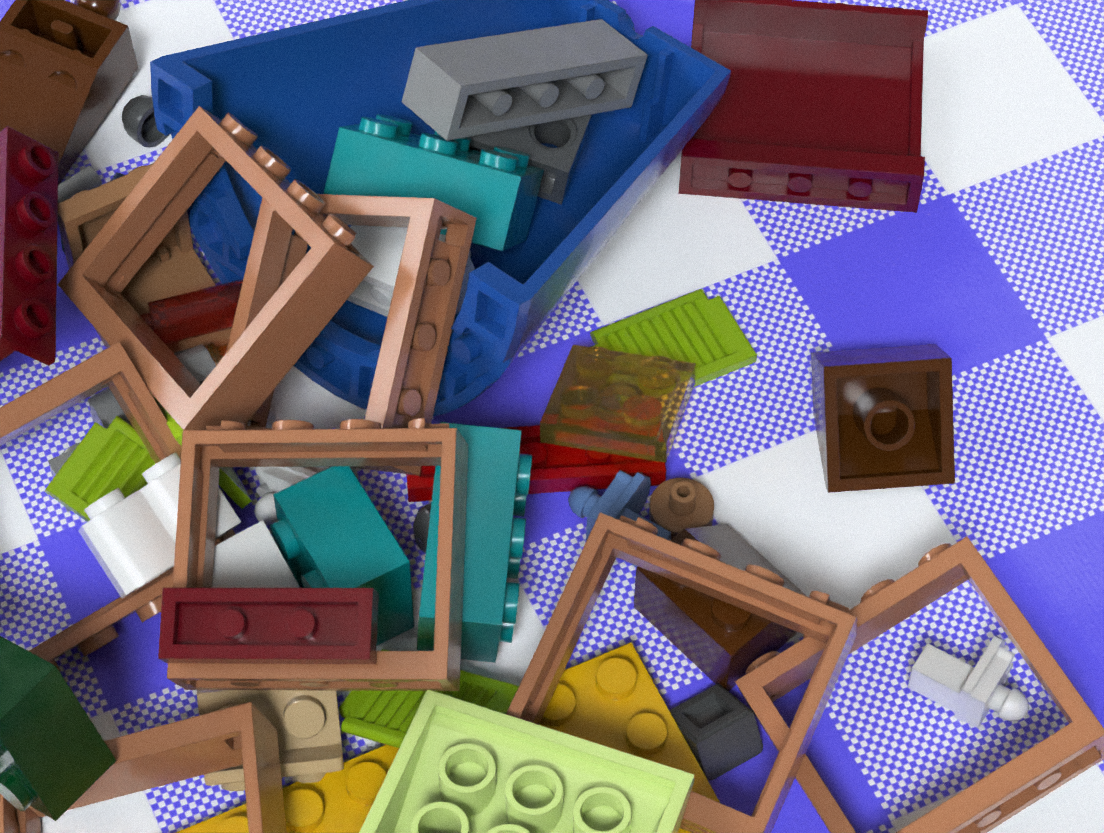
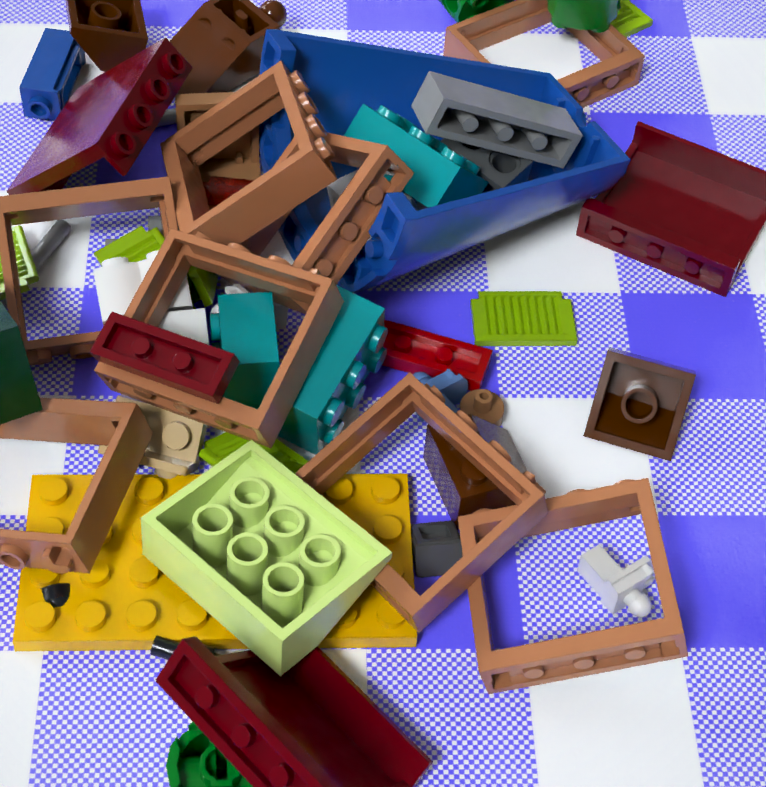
camera: 20 degrees right, 5 degrees down
(618, 403) = (470, 331): clear yellow plate -> none

